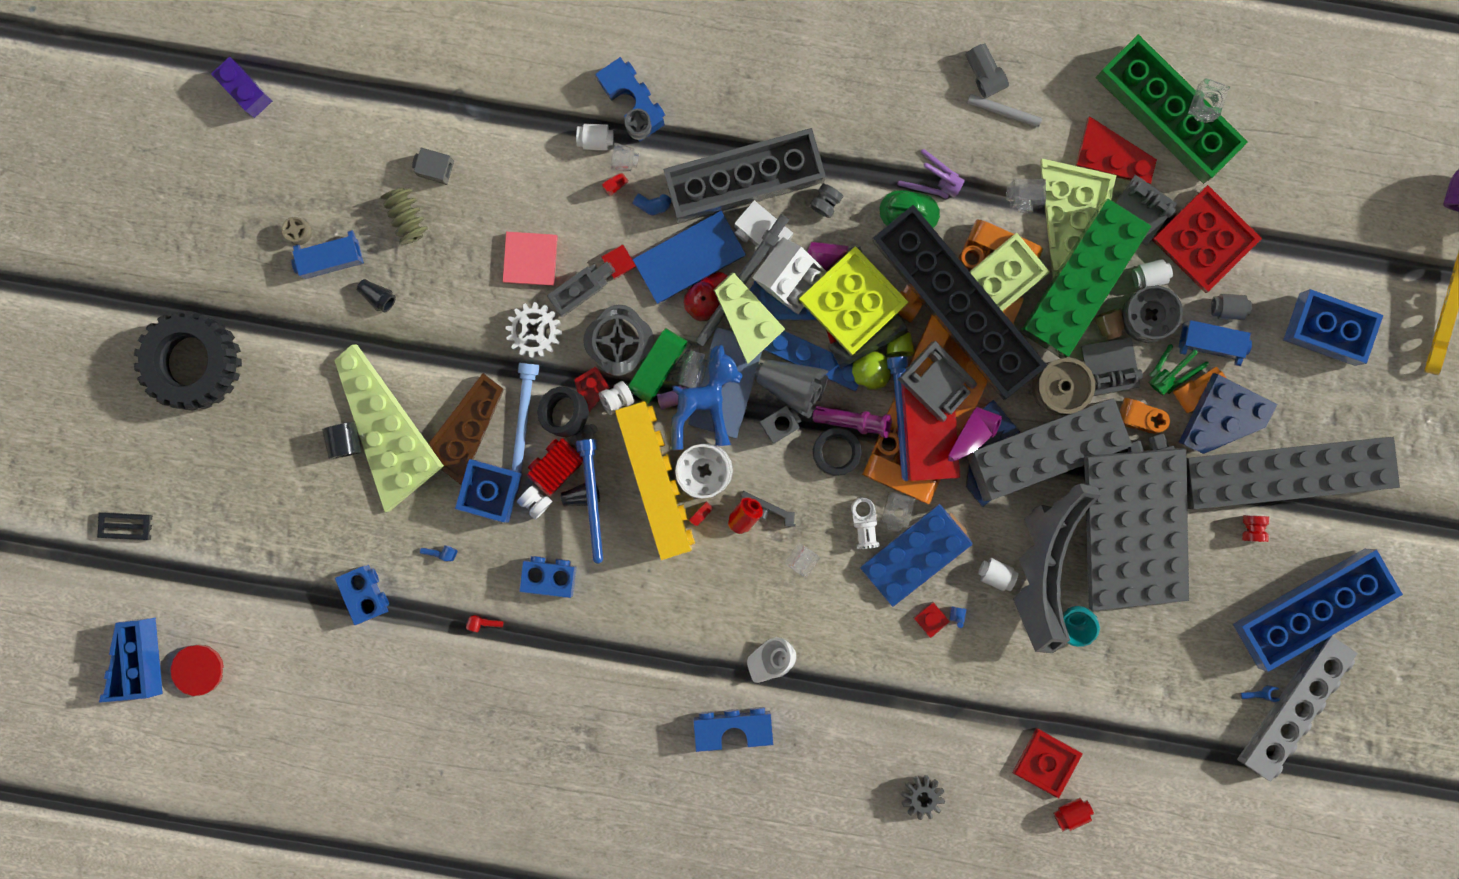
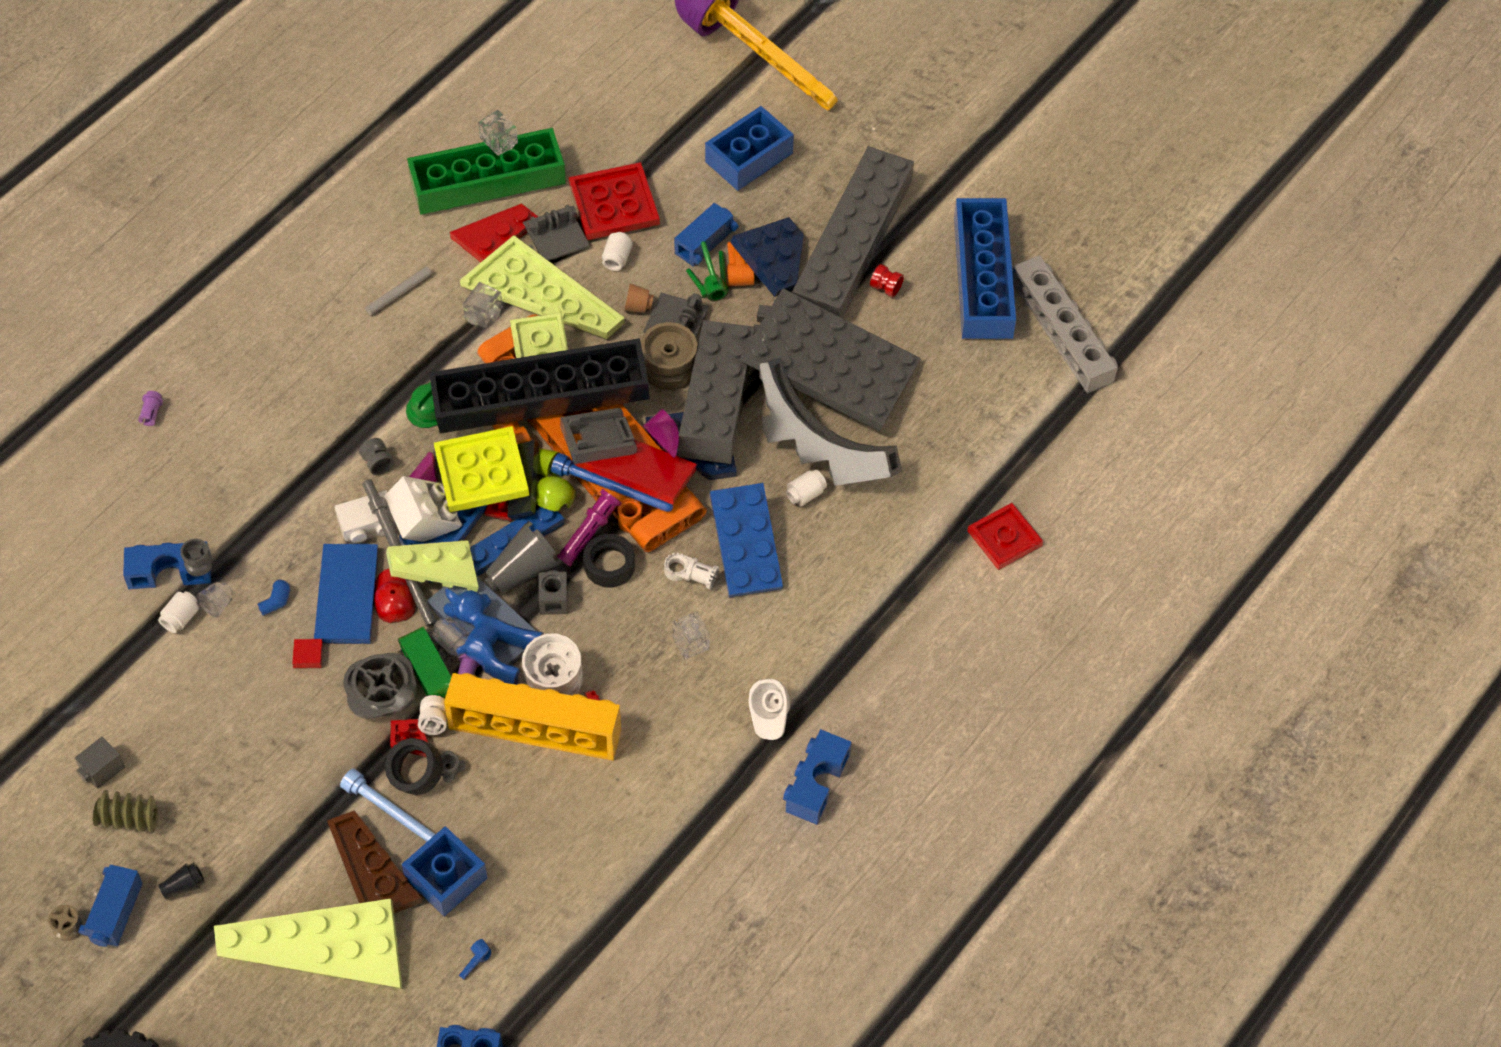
camera: 65 degrees left, 30 degrees down
(341, 440) = (301, 986): black piece -> none
(474, 623) = (566, 960): red hand -> none
(529, 498) = (476, 840): white wheel -> none
(530, 258) = (249, 727): coral tile -> none
(543, 322) = (304, 755): white gear -> none
(548, 584) = (571, 868): blue brick -> none
(555, 466) = (462, 803): red brick -> none
(577, 496) = (506, 793): black cone -> none
(580, 288) = (308, 695): dark grey hinge -> none
(587, 451) = (464, 759): blue piece -> none
(615, 183) = (234, 620): red tile -> none
(744, 175) = (305, 506): dark grey brick -> none
(745, 515) = (618, 660): red brick -> none
(766, 506) = (622, 643): dark grey piece -> none
(897, 501) = (695, 537): clear brick -> none
(927, 806) = (978, 647): dark grey gear -> none
(931, 619) = (814, 563): red plate -> none
(949, 180) = (430, 357): medium lavender plant -> none
(958, 615) = (823, 537): blue hand -> none
(989, 77) = (361, 285): dark grey piece -> none
(1073, 814) = (1064, 535): red brick -> none
(1081, 626) = (891, 436): teal piece -> none
(1085, 279) = (583, 286): green brick -> none
(1139, 415) = (738, 310): orange piece -> none
(1166, 317) = (650, 260): dark grey wheel -> none
(1231, 306) = (683, 210): dark grey brick -> none
(1265, 694) = (1039, 343): blue hand -> none

